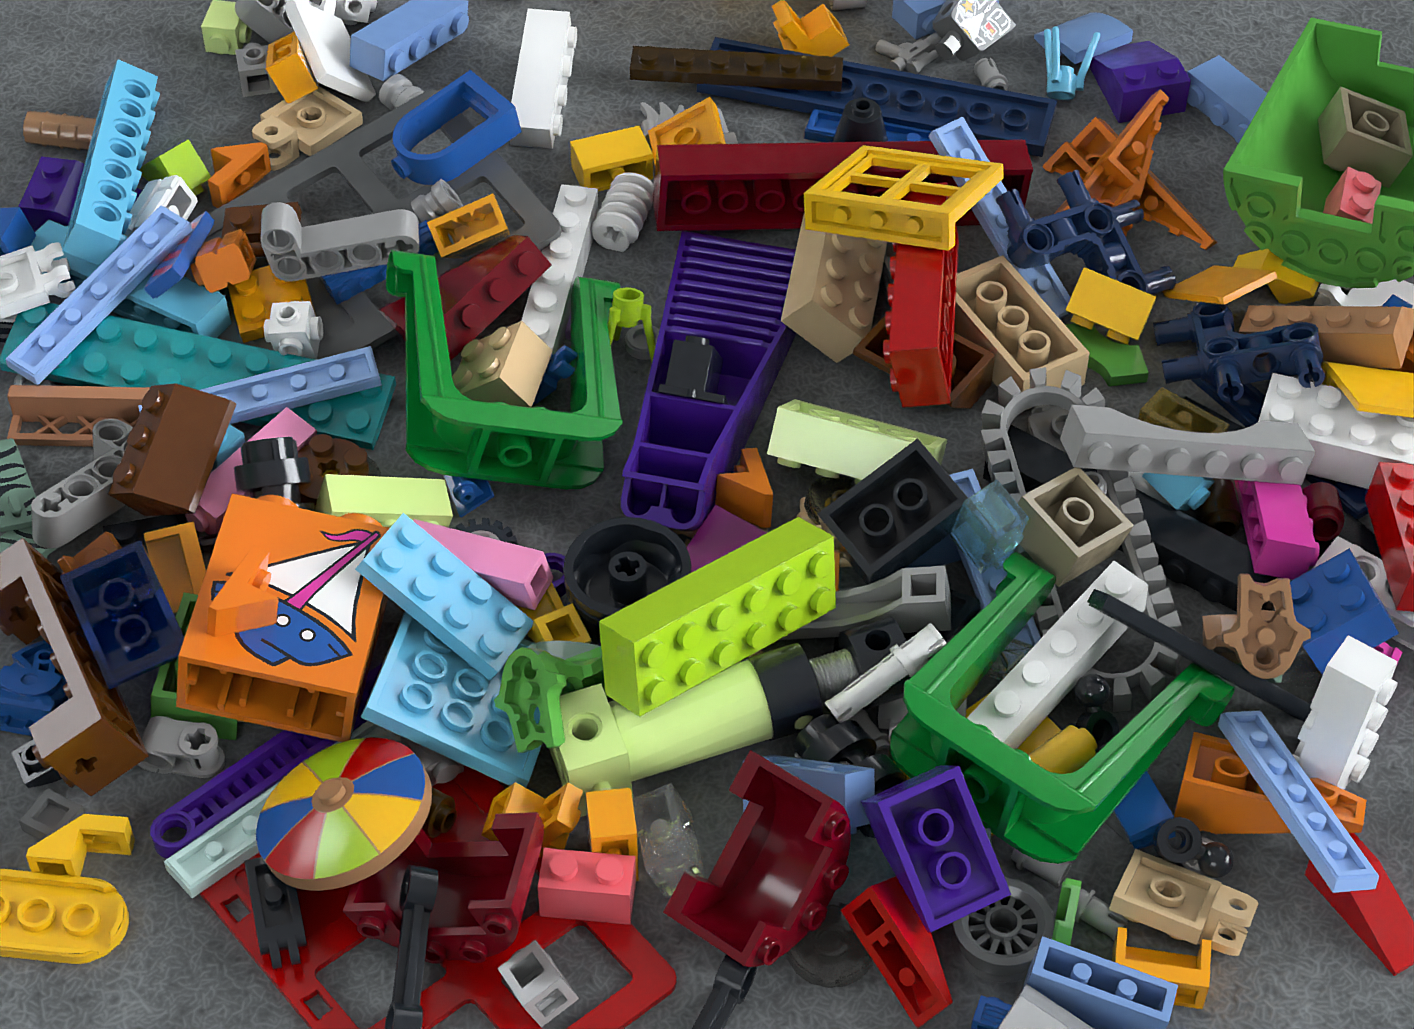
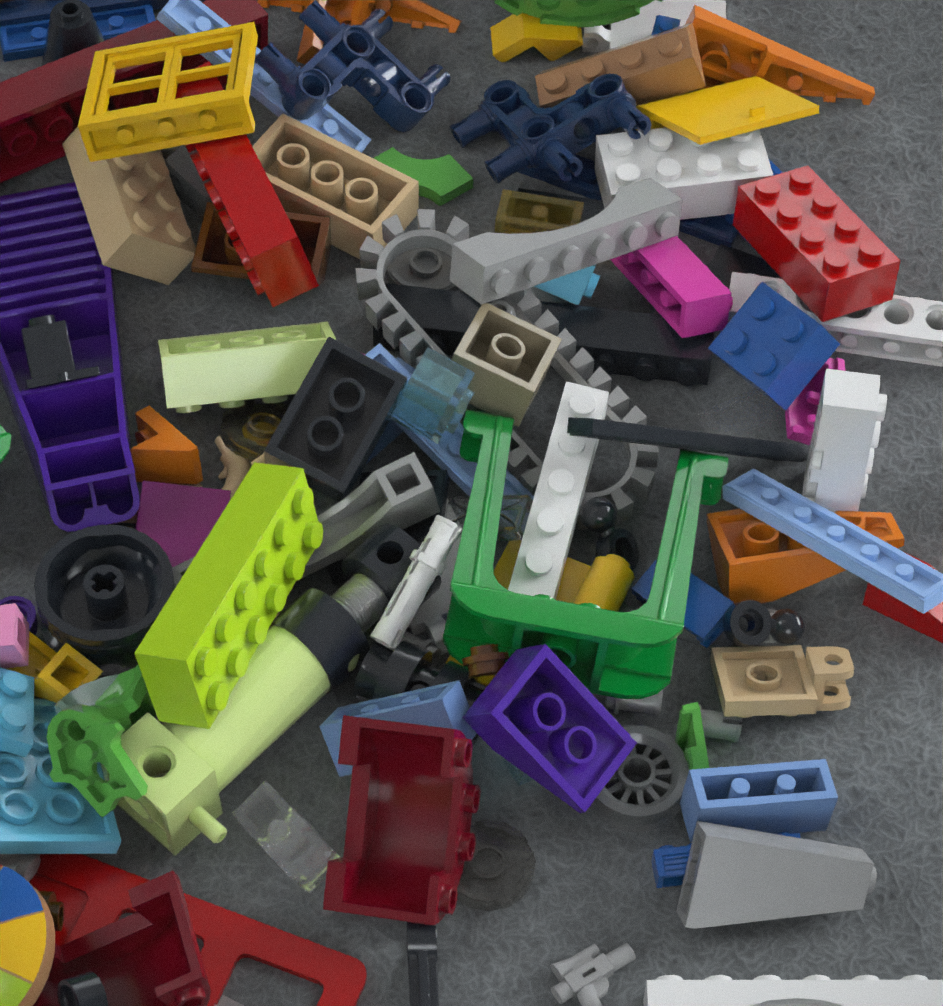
camera: 30 degrees left, 5 degrees up
(557, 811) = (130, 868): light orange brick -> none
(587, 886) = (239, 916): coral brick -> none
(612, 823) = (234, 857): light orange panel -> none
(900, 948) = (560, 840): red slope -> none
(910, 763) = (485, 660): none -> reddish brown plate
(1110, 305) = (409, 125): yellow brick -> none
(1186, 971) = (810, 742): light orange panel -> none
(1220, 284) = (495, 64): light orange piece -> none
(1221, 508) = (613, 288): dark brown brick -> none
(1258, 638) = (723, 398): medium nougat hips -> none
(1325, 510) = (706, 248): dark red brick -> none

